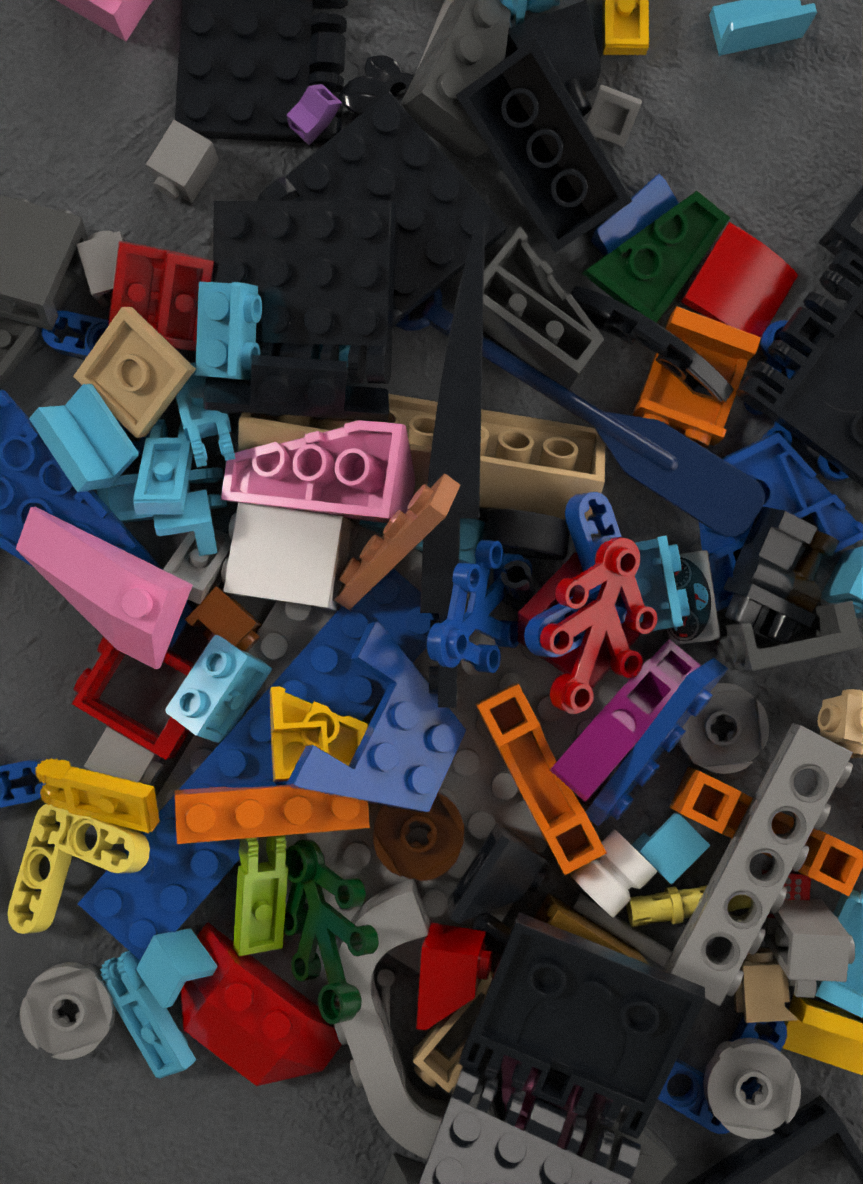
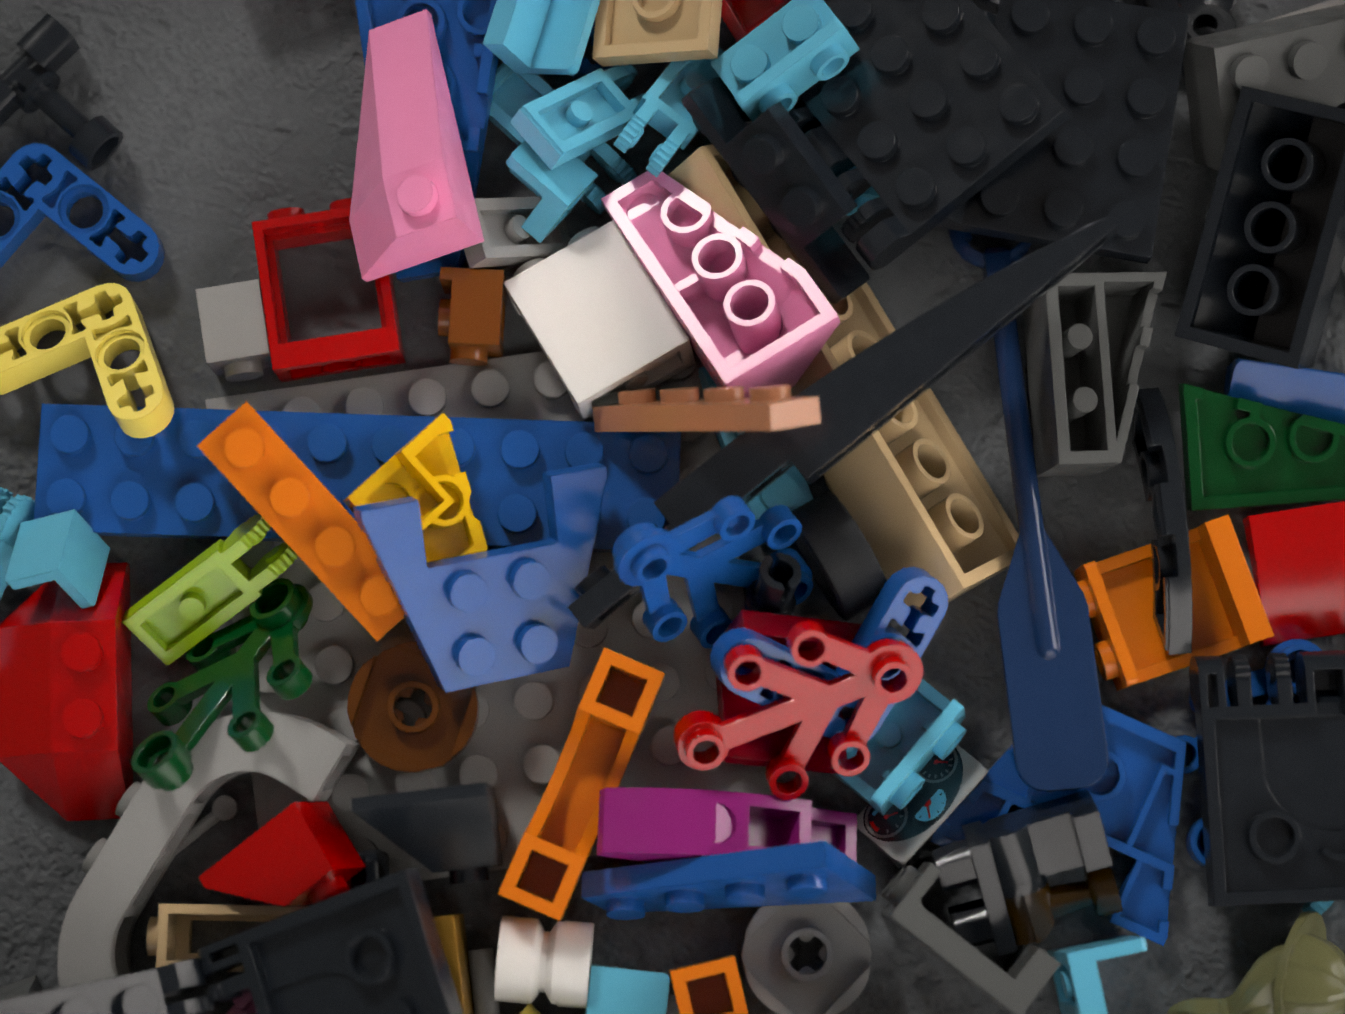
camera: 55 degrees right, 5 degrees down
(98, 795) = (177, 329): yellow hinge -> none
(218, 690) = (393, 363): medium azure bracket -> none

